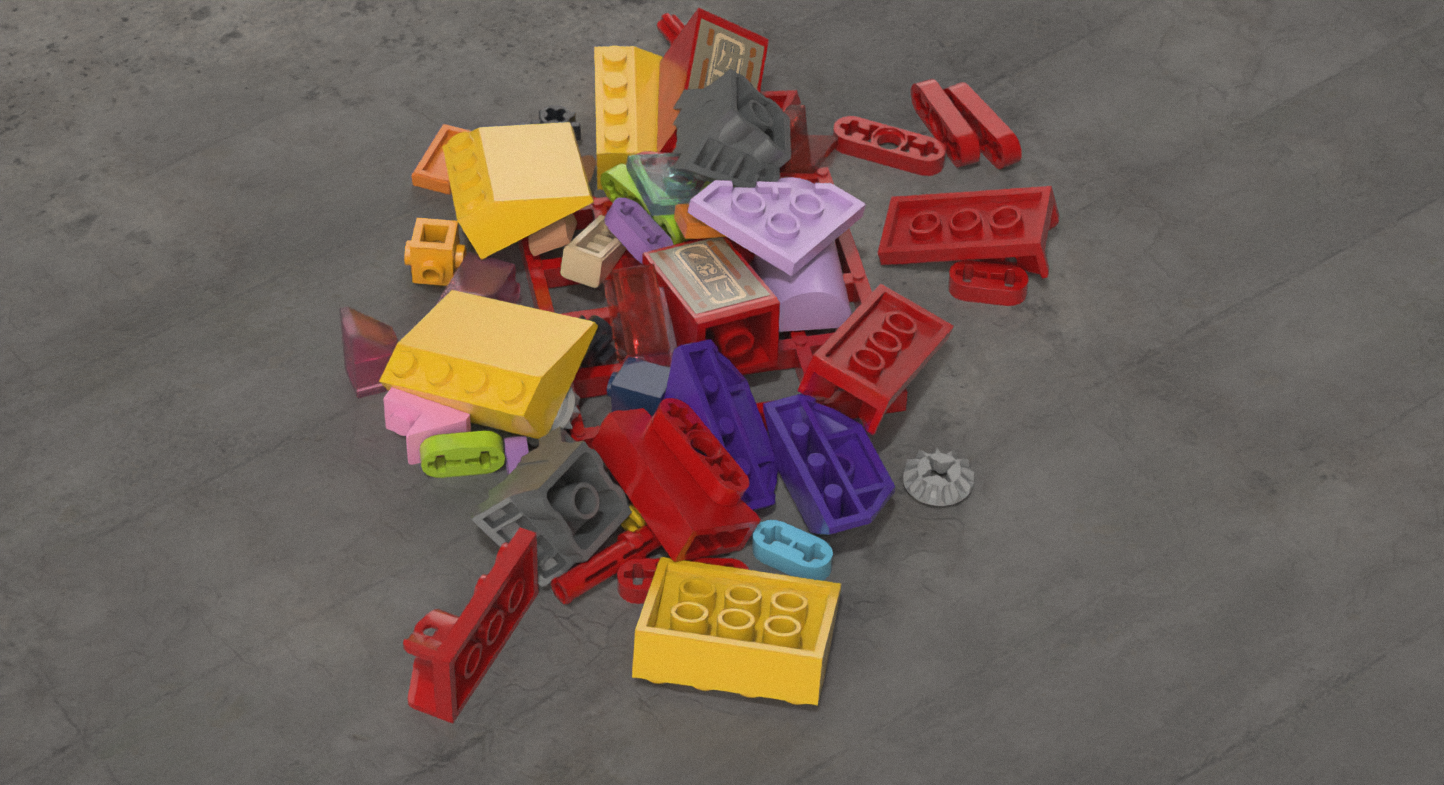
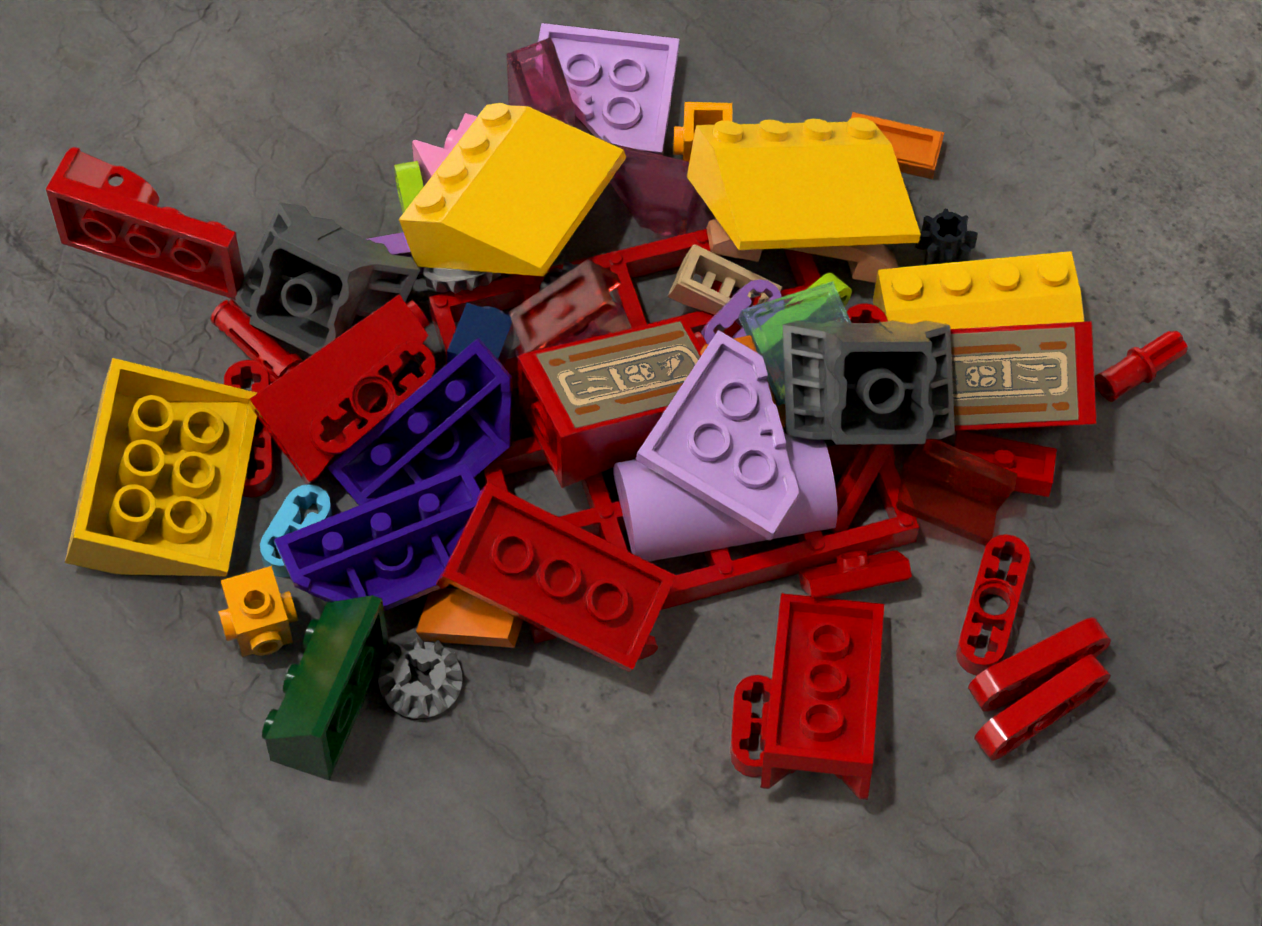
camera: 85 degrees right, 15 degrees up
(316, 333) = (618, 82): none -> lavender plate
(873, 223) = (854, 572): none -> red plate
(882, 564) = (257, 612): none -> light orange brick
(897, 431) = (465, 619): none -> orange tile
(957, 512) = (327, 686): none -> dark green slope

